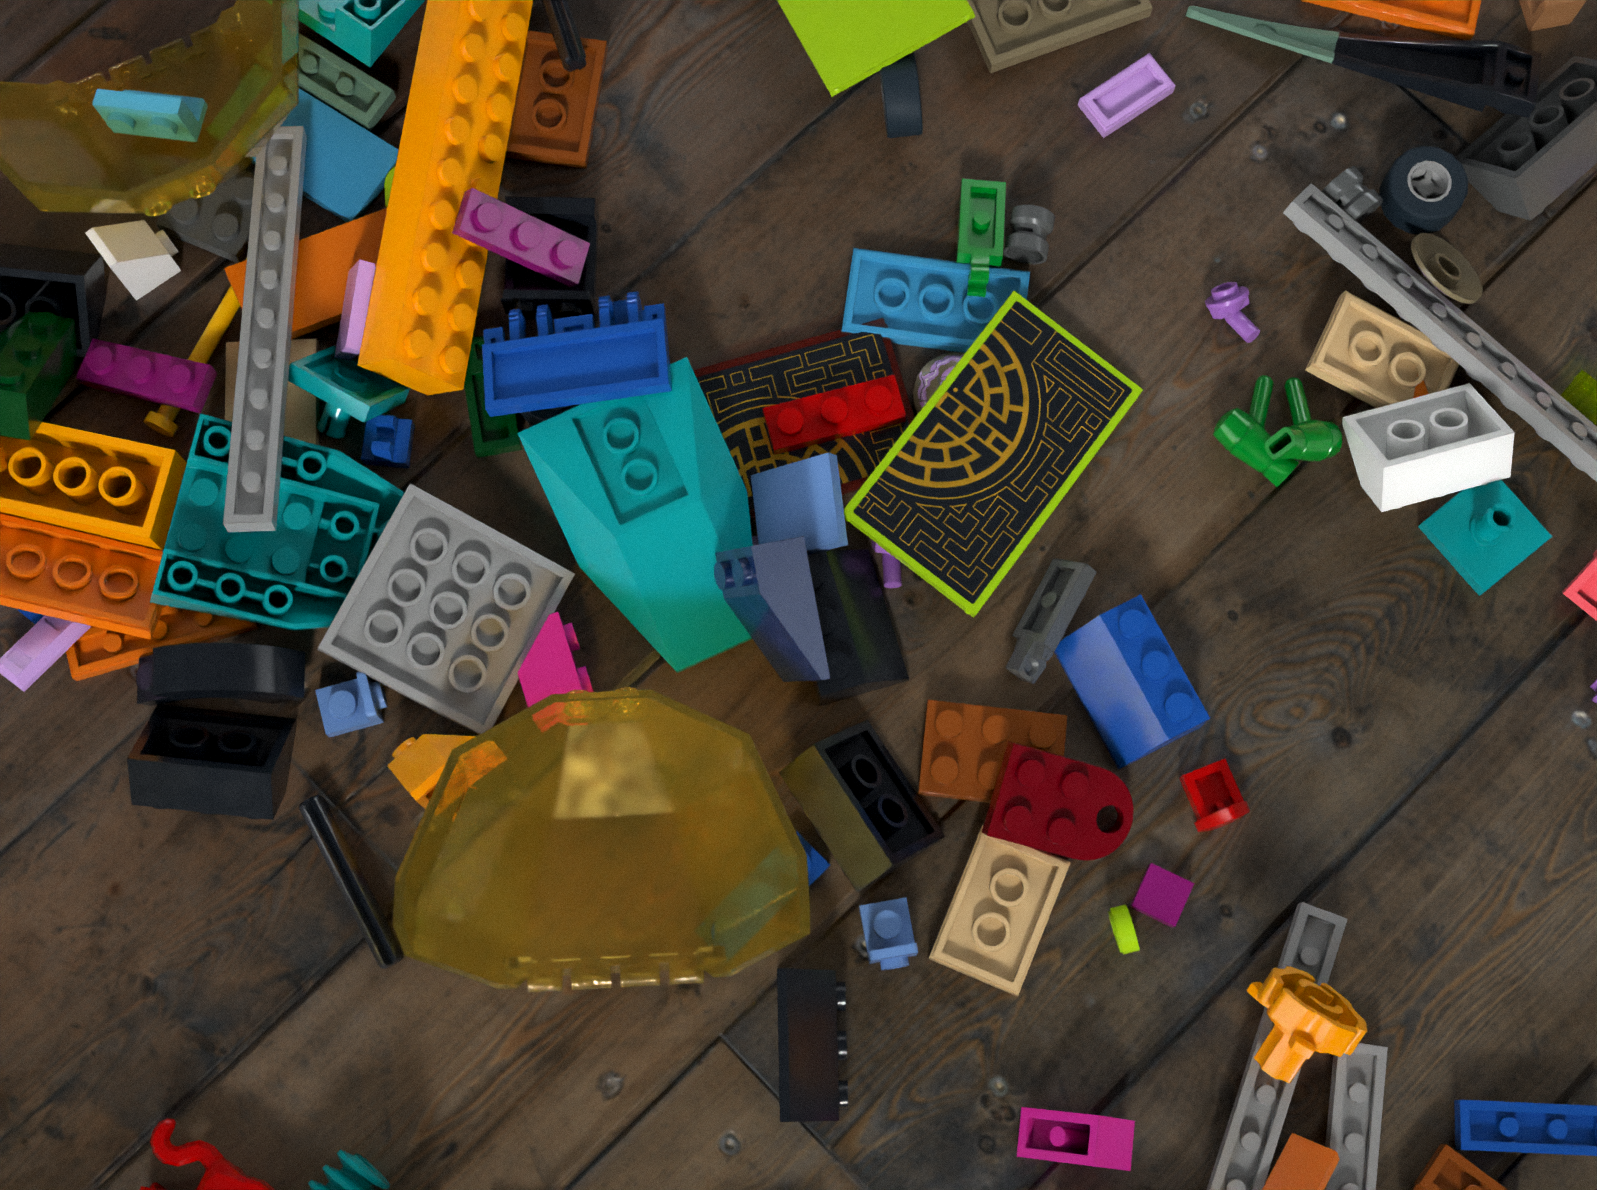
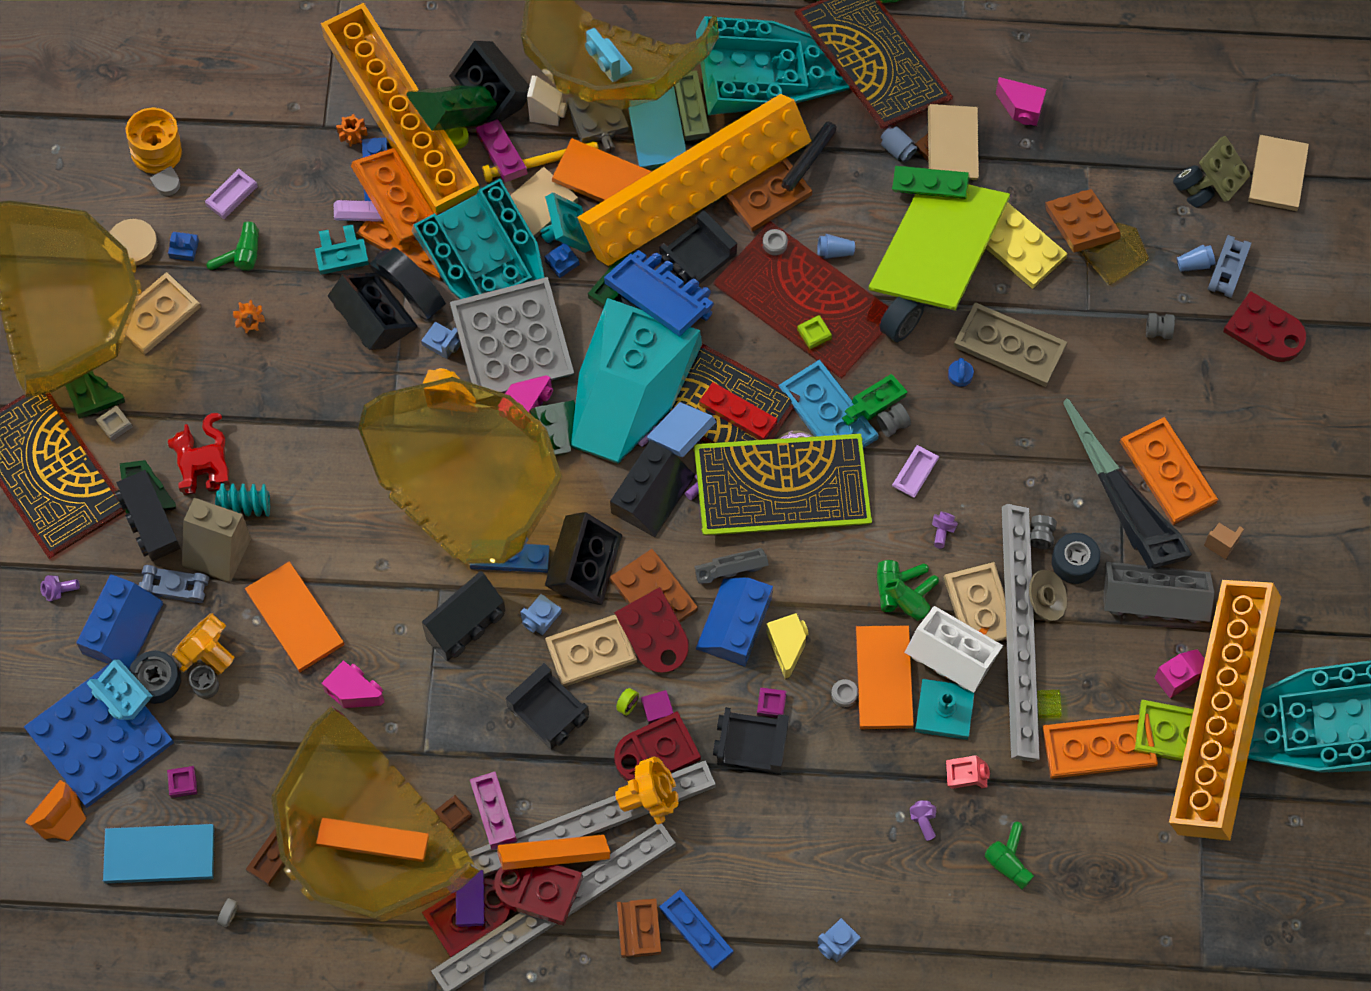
camera: 50 degrees right, 10 degrees down
(52, 943) = (242, 314): none -> orange gear
(66, 412) = (458, 136): none -> lime tile
(86, 730) = (342, 255): none -> teal plate
(266, 335) = (558, 171): light grey plate -> none
(351, 881) = (377, 388): black axle -> none
(355, 309) = (610, 191): lavender tile -> none
(520, 237) = (691, 230): magenta plate -> none
(629, 660) = (559, 422): none -> wing
(632, 152) = (775, 242): none -> light grey tile
(711, 87) = (832, 246): none -> medium blue cone
(746, 189) = (798, 287): none -> clear red piece
(776, 603) = (630, 445): dark blue slope -> none
(809, 219) = (814, 332): none -> lime tile
(1035, 97) = (960, 373): none -> blue tile
(1039, 1044) = (547, 707): none -> black panel
(1076, 1138) = (523, 753): dark pink slope -> none
(1122, 272) = (915, 471): none -> lavender tile
(1126, 95) = (999, 408): lavender tile -> none
(1214, 796) = (719, 693): red tile -> none
(1223, 948) = (663, 739): none -> dark red plate
(1225, 645) = (788, 641): none -> light yellow slope
(1285, 741) = (771, 702): none -> magenta tile
(1324, 814) = (751, 742): none -> black panel
(1353, 636) = (844, 693): none -> light grey tile
(1375, 567) = (884, 677): none -> orange tile

